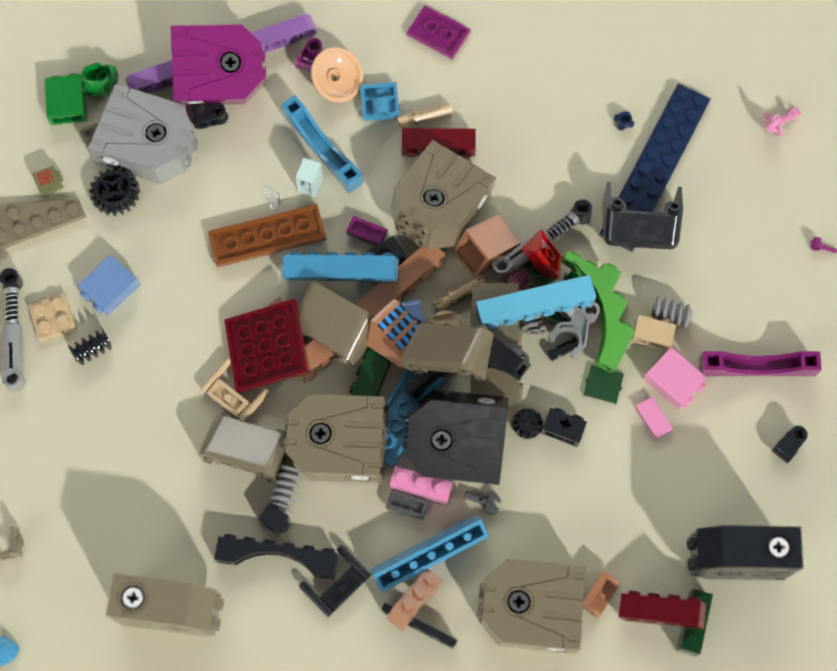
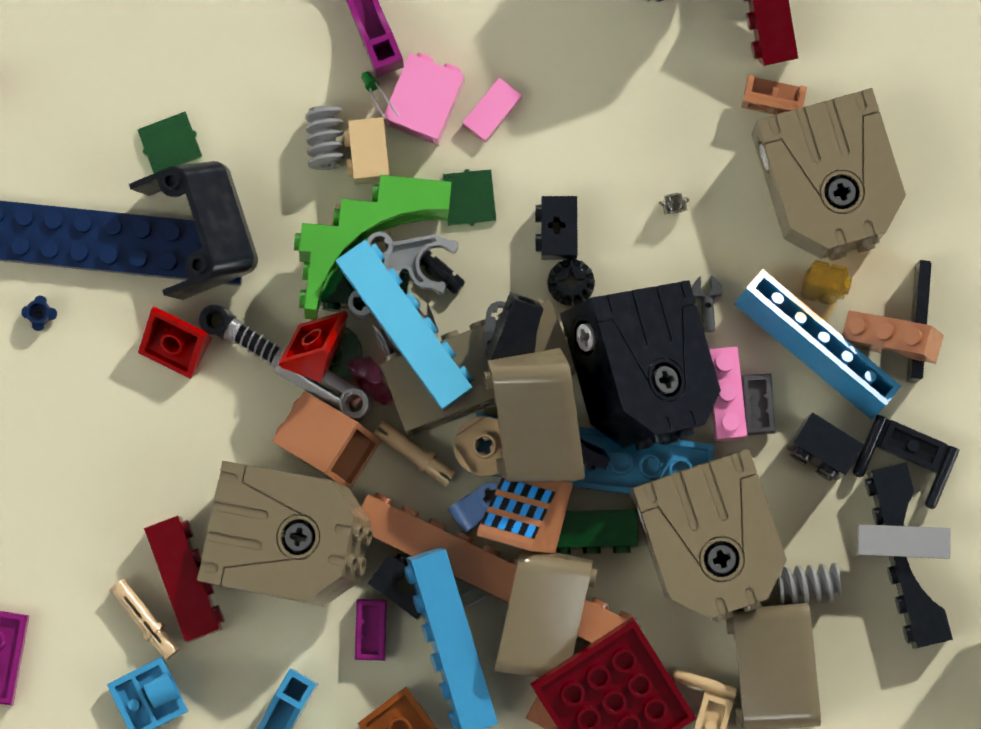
camera: 110 degrees left, 10 degrees up
(274, 519) = (858, 580): black brick -> none
(285, 553) = (903, 541): none -> light grey tile
(363, 529) = (824, 447): none -> black brick
(465, 573) = (825, 282): none -> clear yellow brick
(553, 503) = (674, 203): none -> clear smoke plate
(579, 184) = (173, 342): none -> red slope
(694, 351) = (371, 85): none -> piece
(700, 226) = (169, 142): none -> clear green piece

